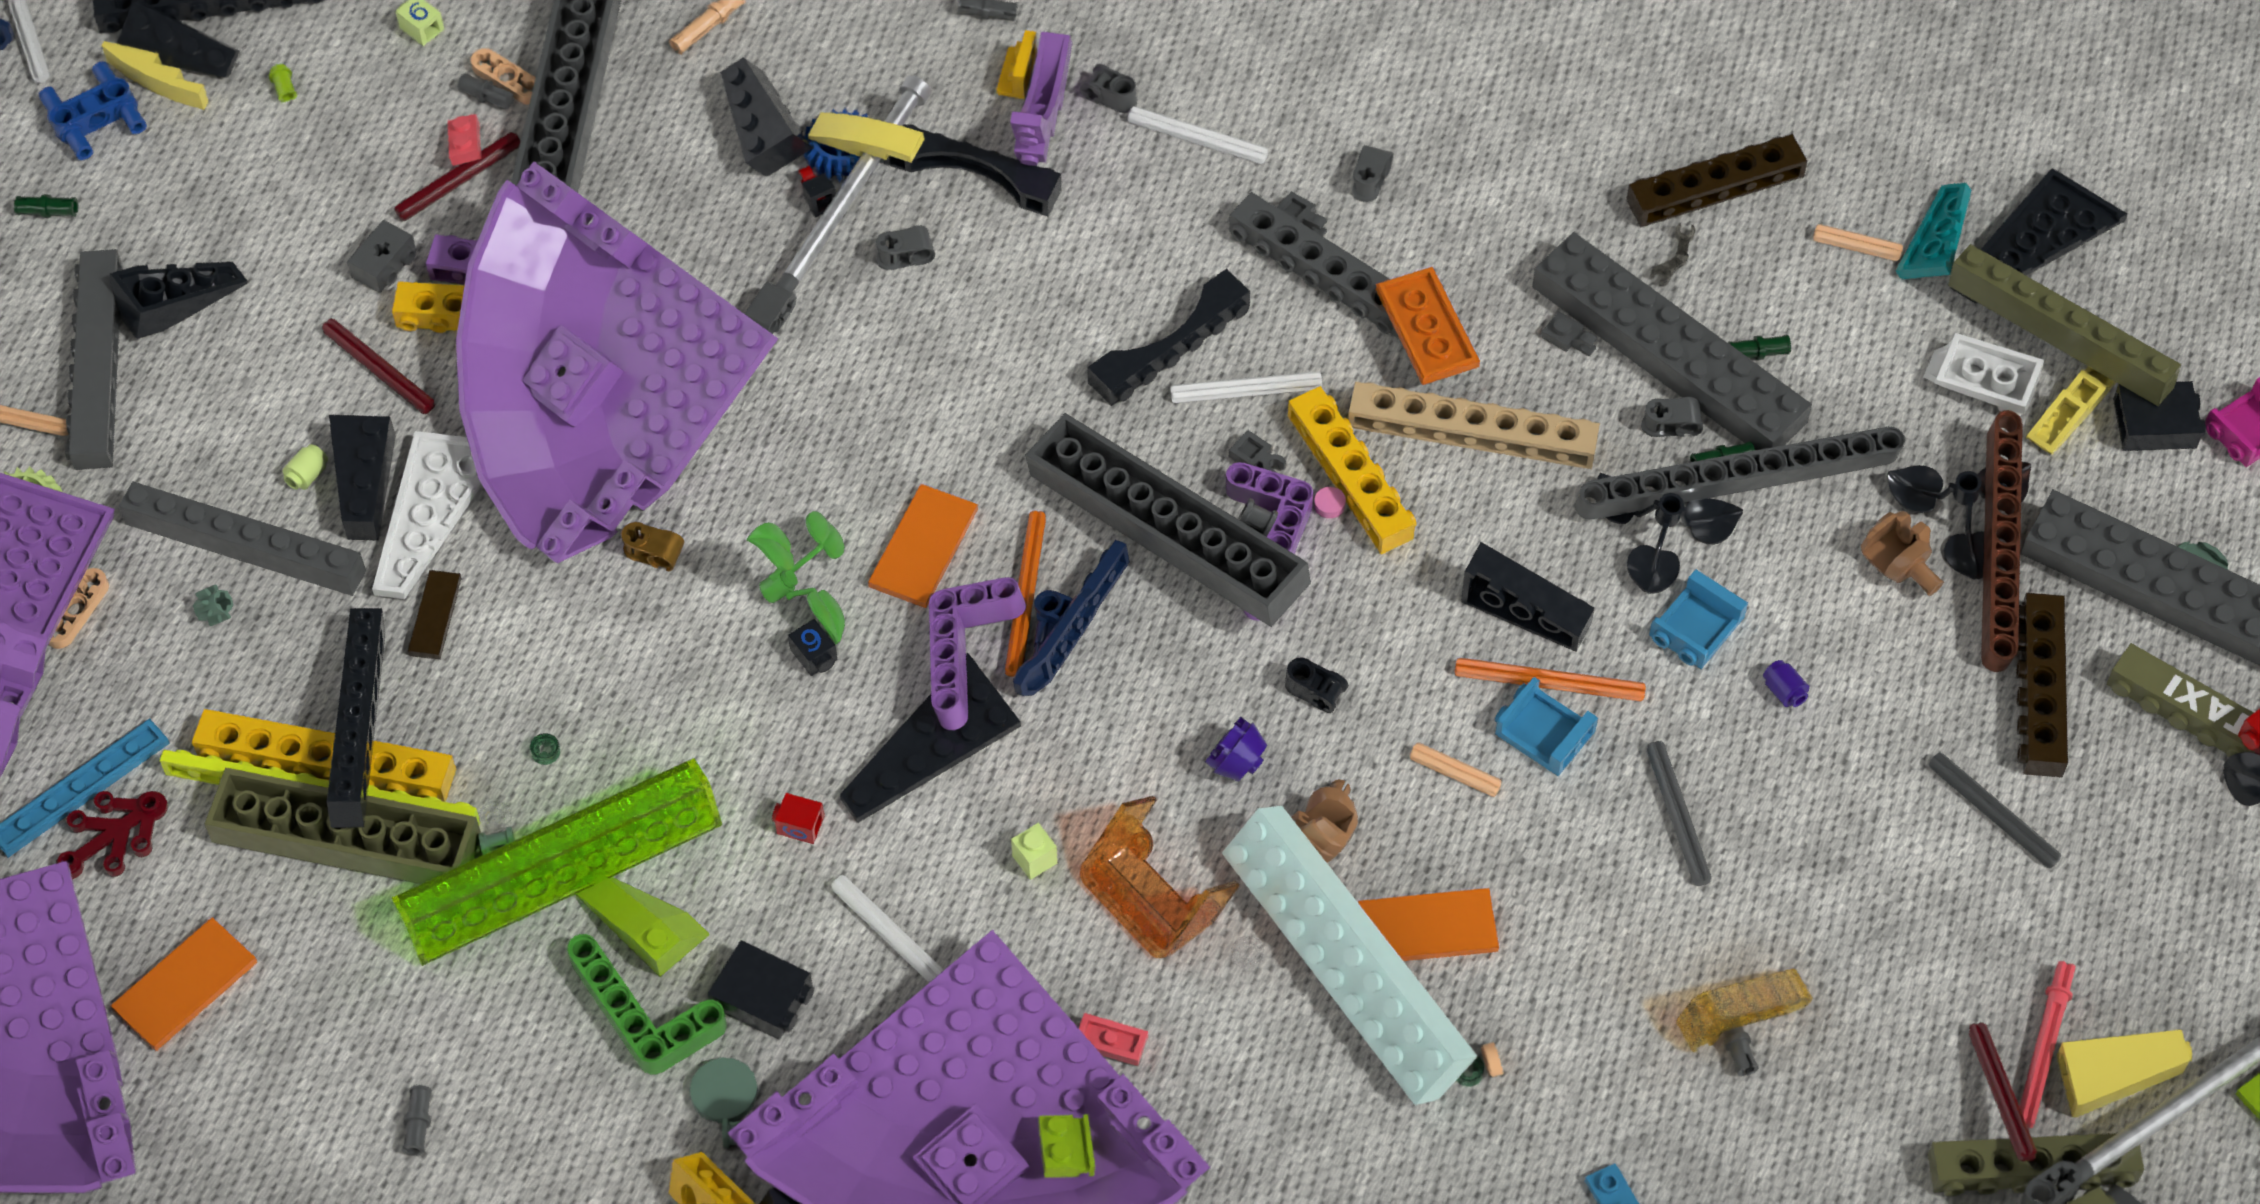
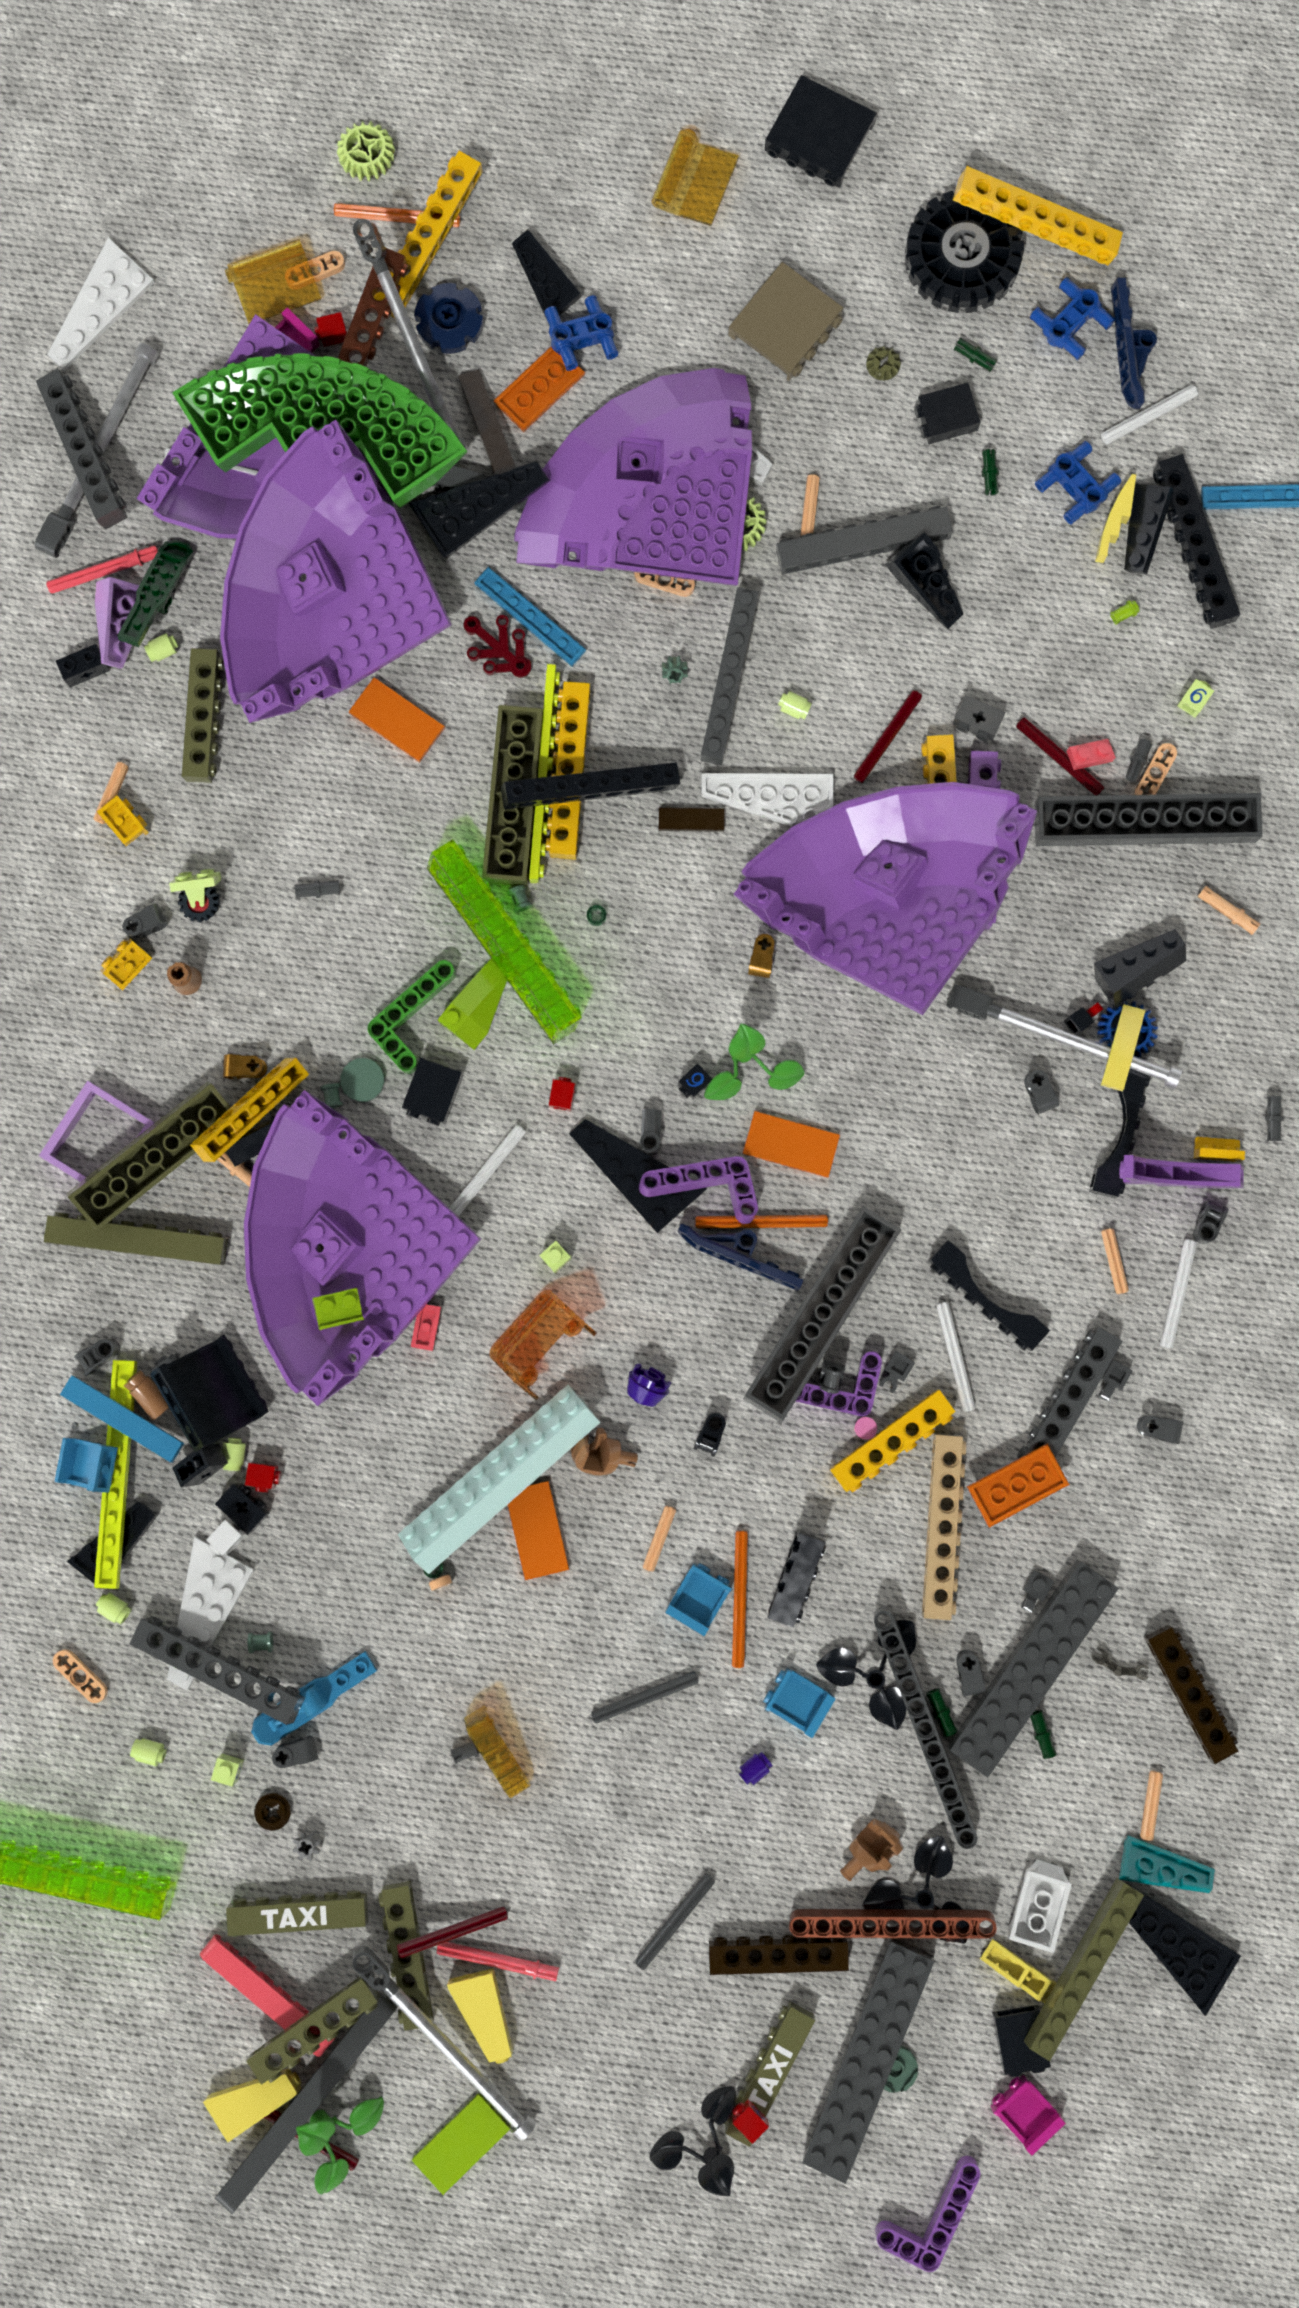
camera: 90 degrees right, 25 degrees up
(362, 467) = (793, 745): black wedge -> none
(872, 711) = (651, 1129): none -> dark grey piece
(1144, 197) = (1114, 1261): none -> light nougat axle

